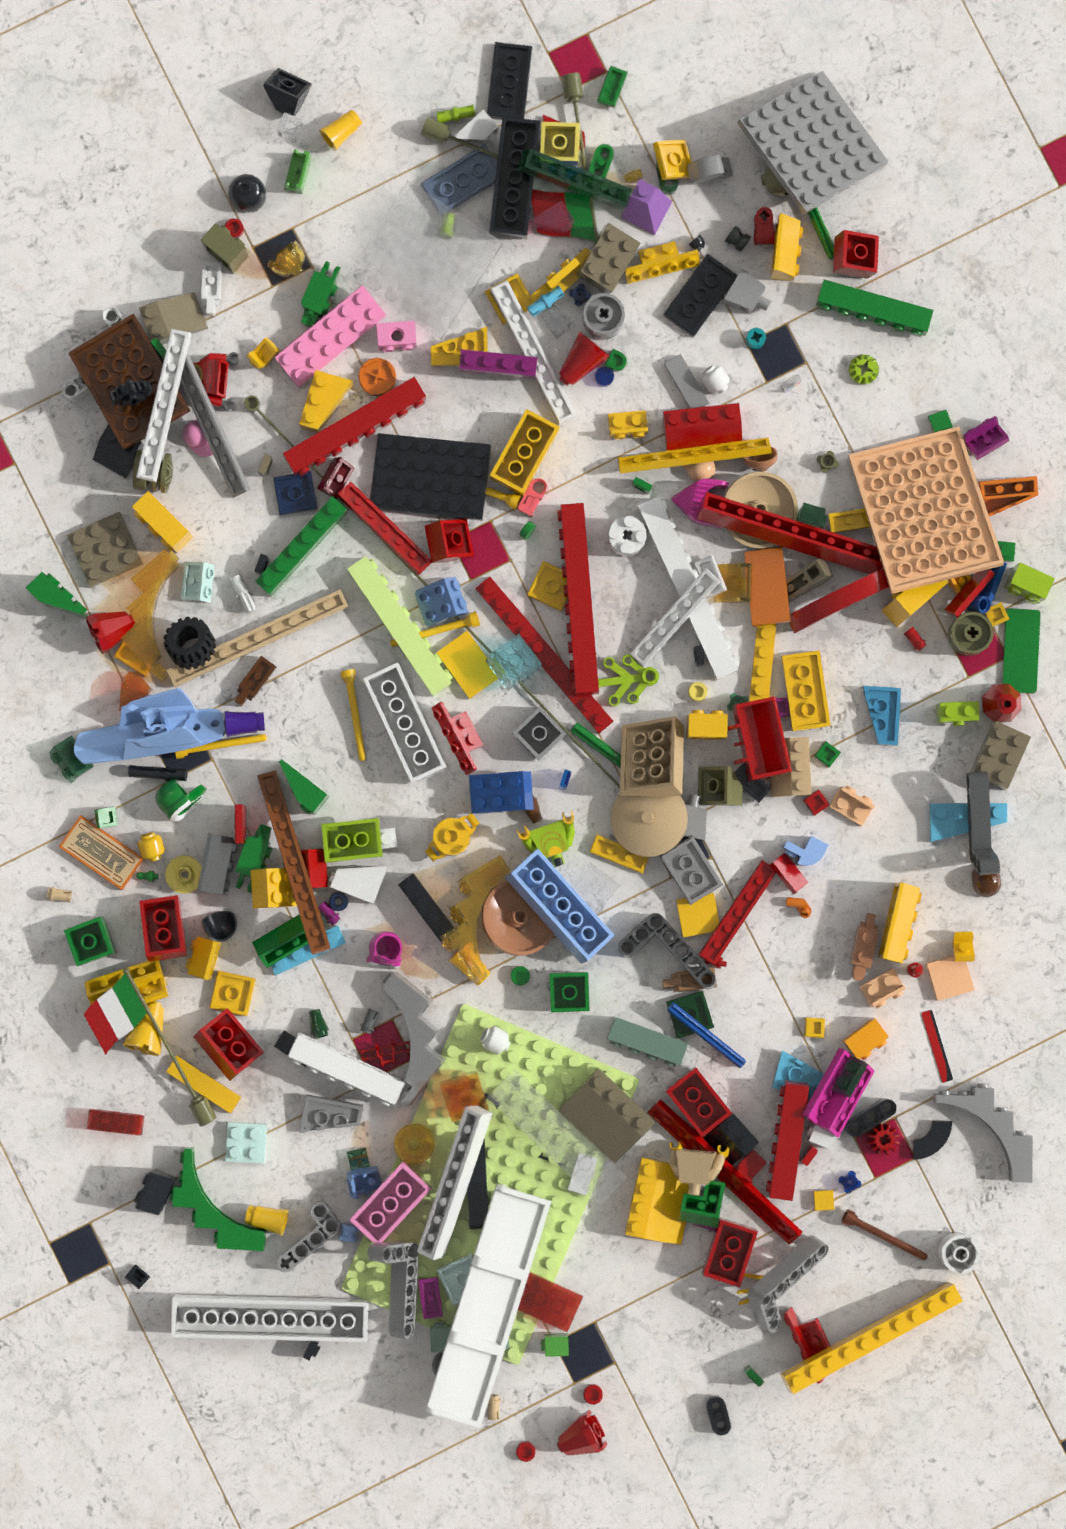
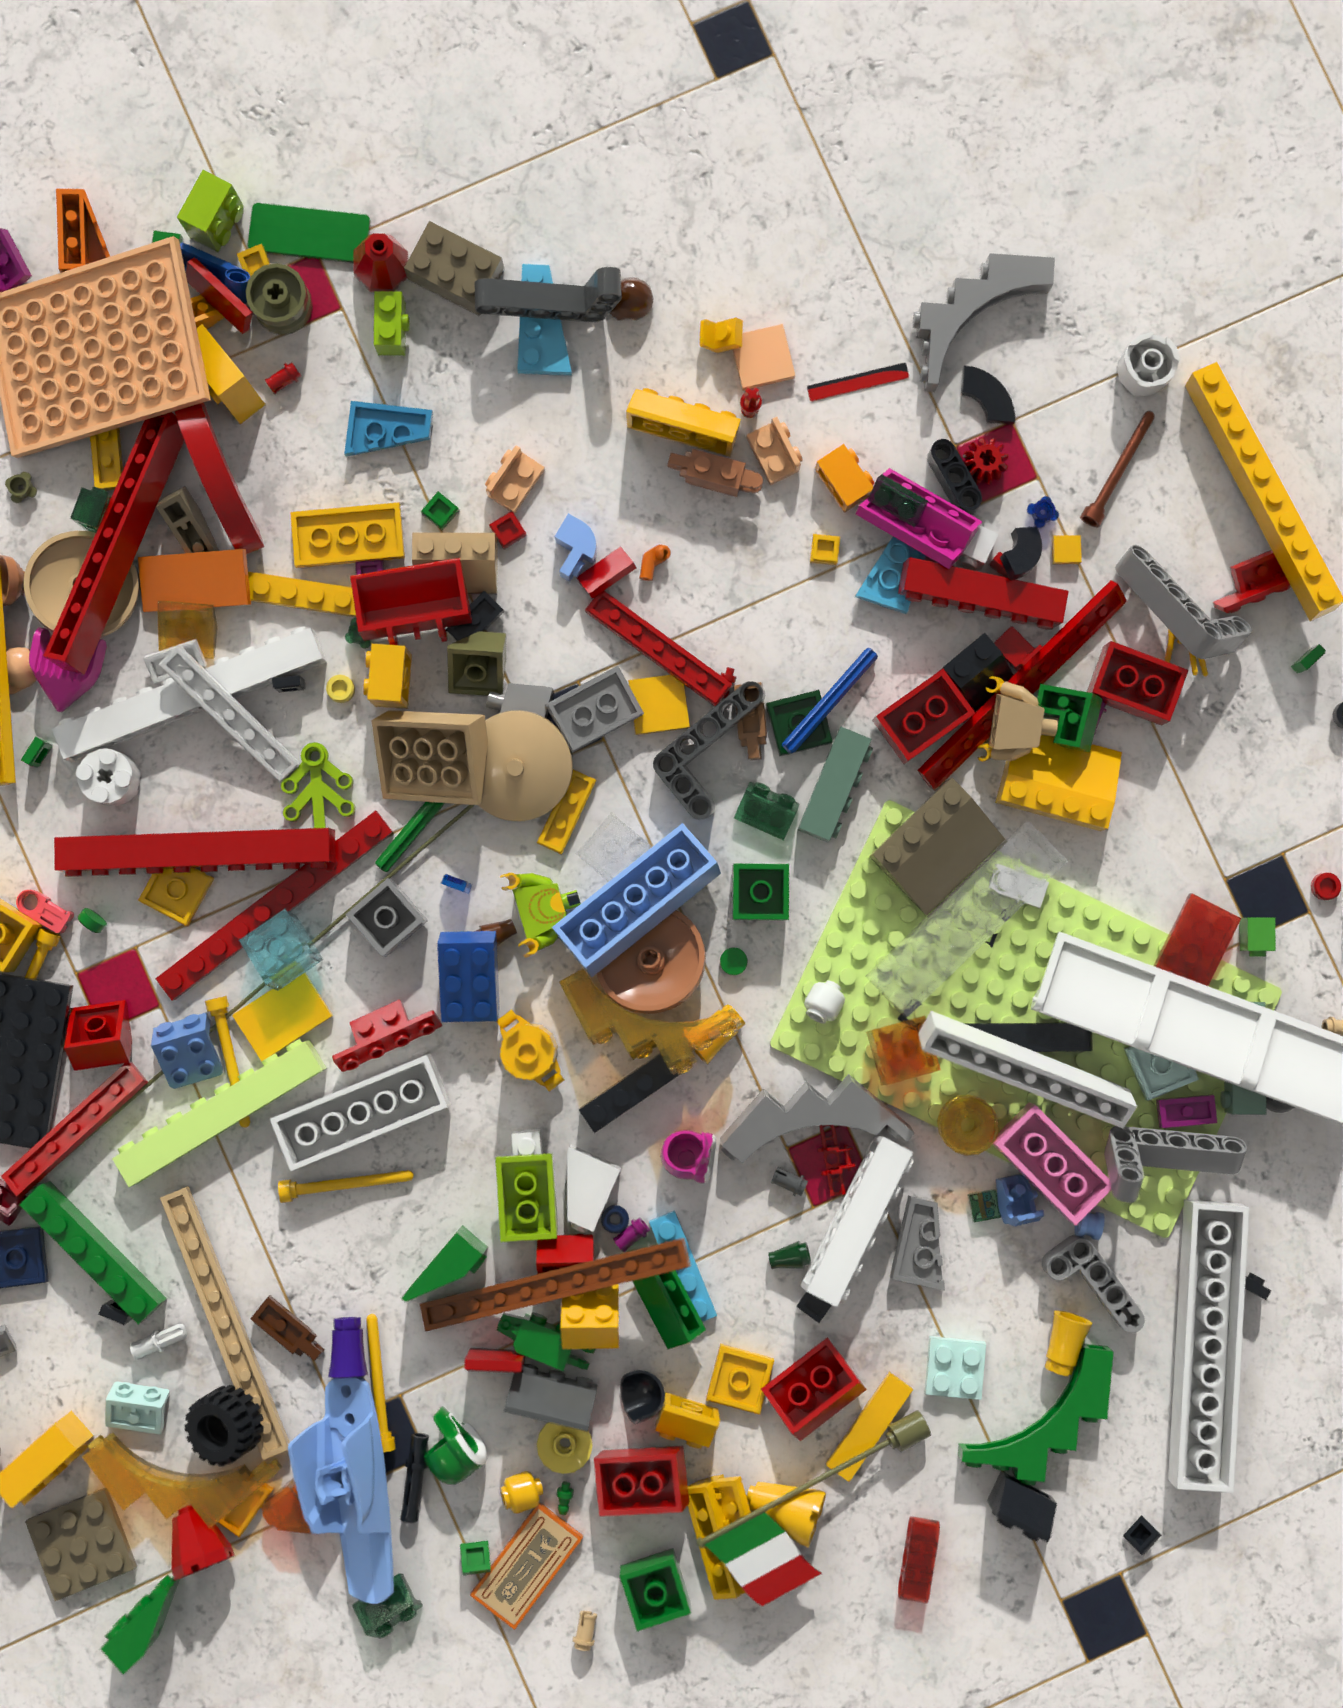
camera: 90 degrees left, 0 degrees up
(627, 994) = (767, 810): none -> clear green bracket
(817, 1168) = (1024, 553): none -> black tile

